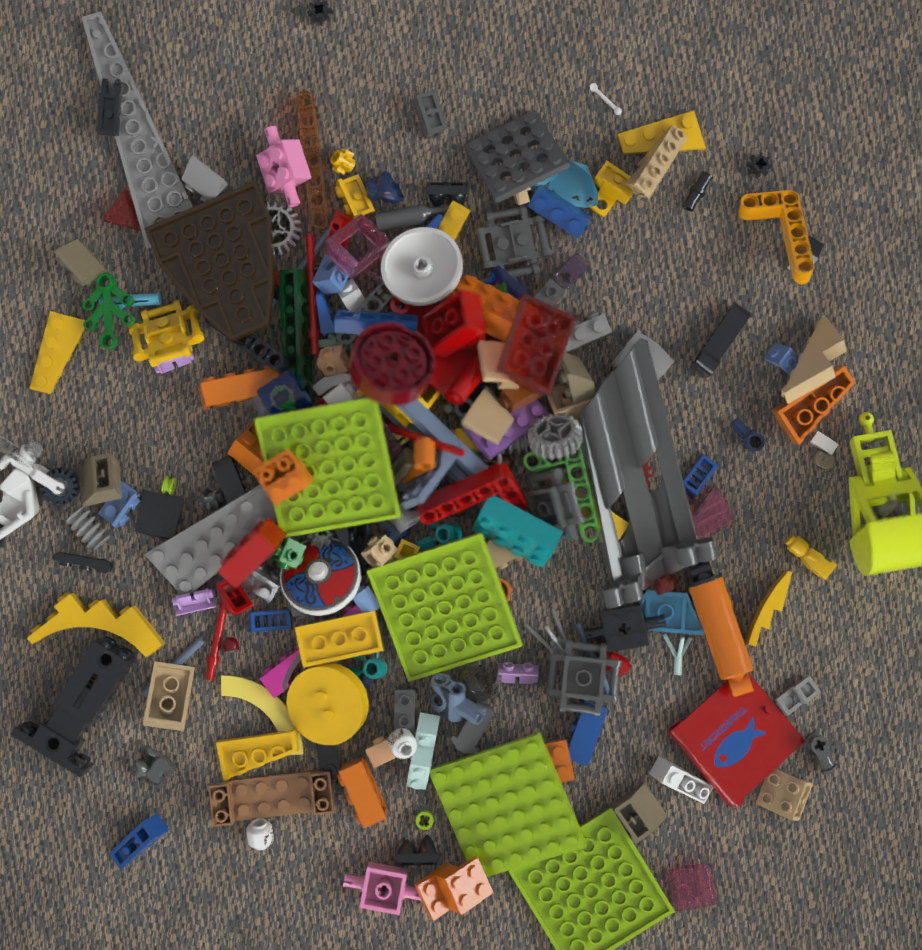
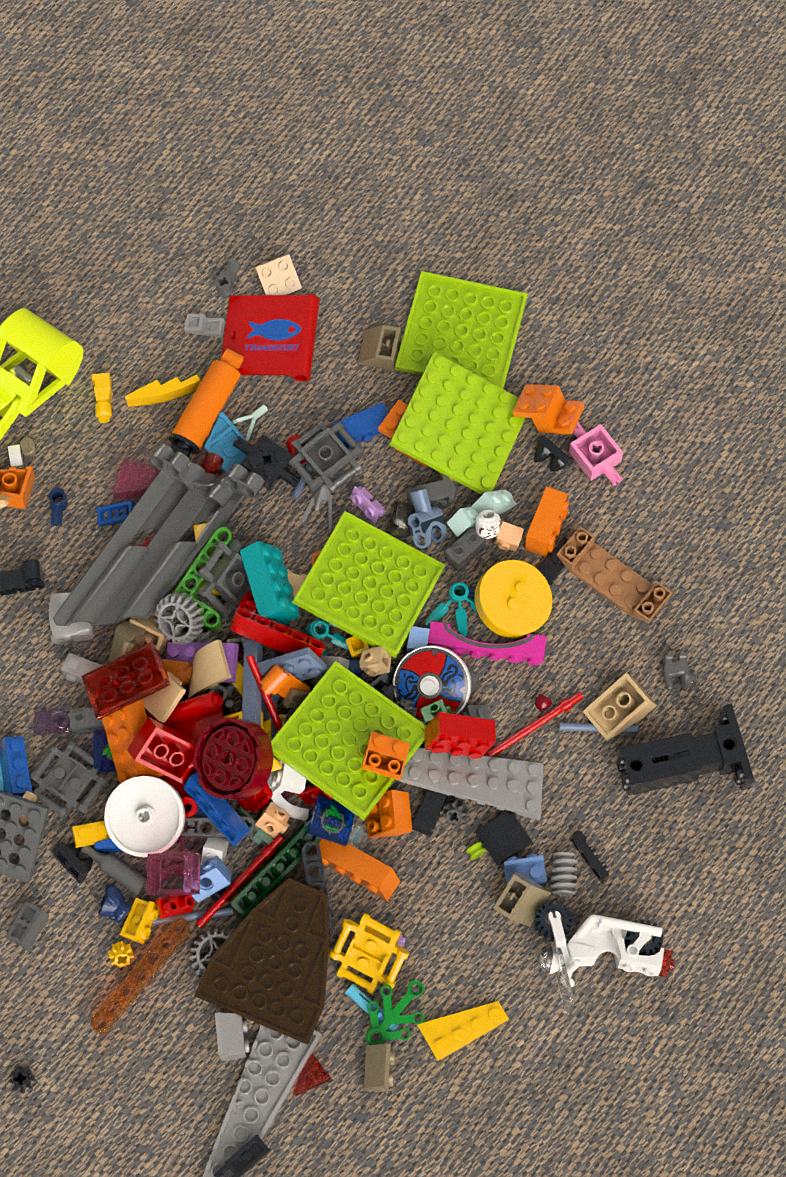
camera: 130 degrees left, 20 degrees down
(73, 613) = (615, 809): yellow arch -> none
(139, 840) = (736, 634): blue slope -> none
(200, 601) = (538, 753): lavender hinge -> none
(233, 598) = (507, 728): red slope -> none
(252, 624) = (508, 703): blue slope -> none
(254, 751) = (603, 622): yellow wing -> none
(259, 834) = (646, 562): white head -> none
(261, 697) = (555, 639): light yellow tile -> none
(283, 166) = (165, 988): bright pink brick -> none
(325, 316) = (248, 855): blue slope -> none
(339, 638) = (461, 630): yellow plate -> none
(430, 820) = (530, 474): lime bush -> none
(680, 780) = (333, 343): white slope -> none
(692, 887) = (395, 276): clear pink slope -> none

